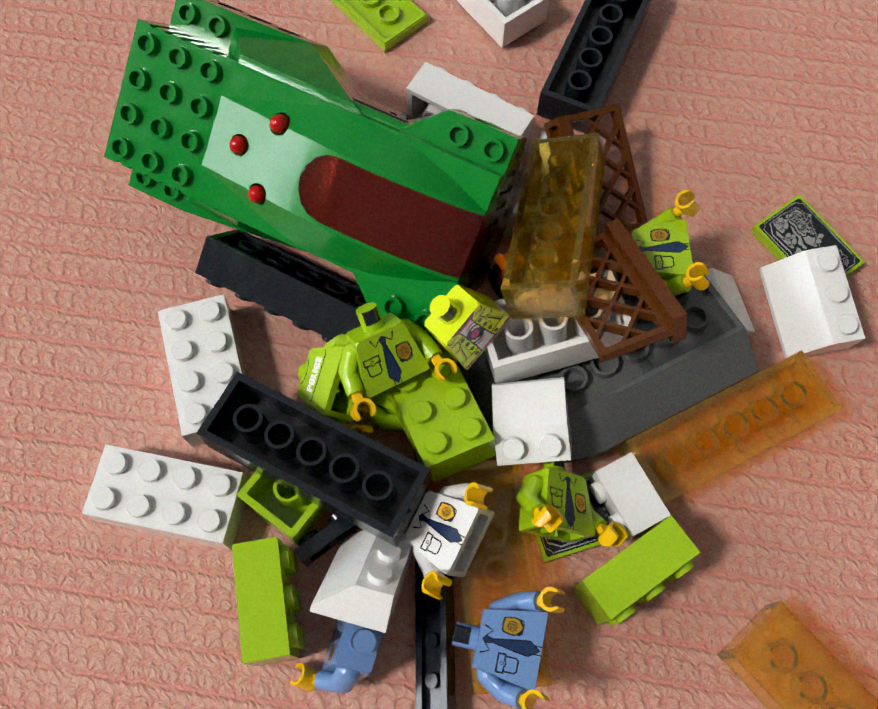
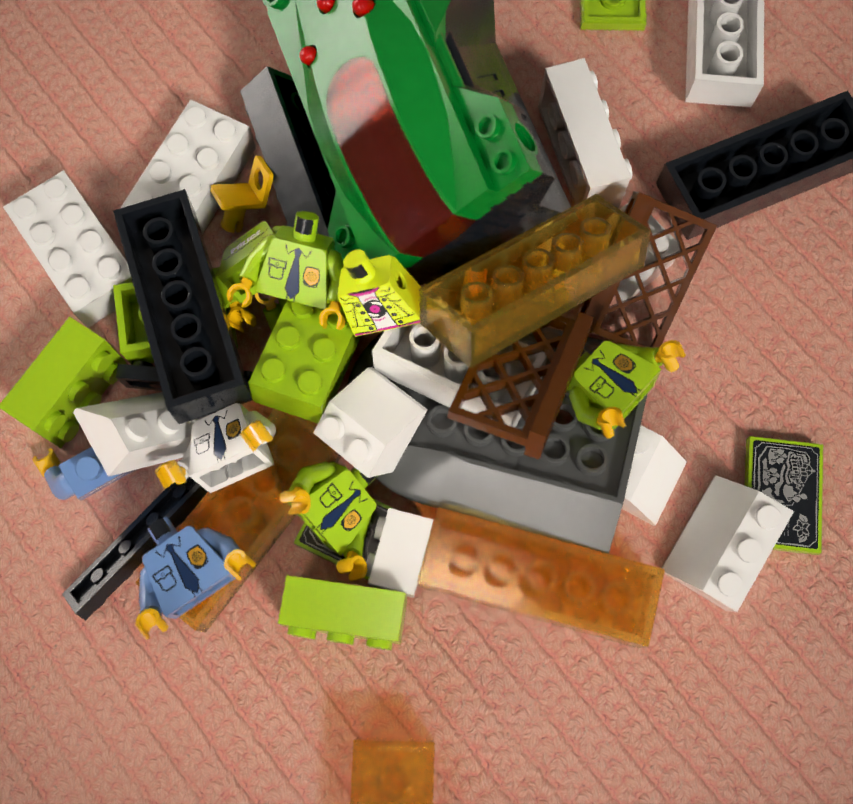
camera: 45 degrees right, 5 degrees up
(268, 346) = (243, 196): none -> yellow bracket

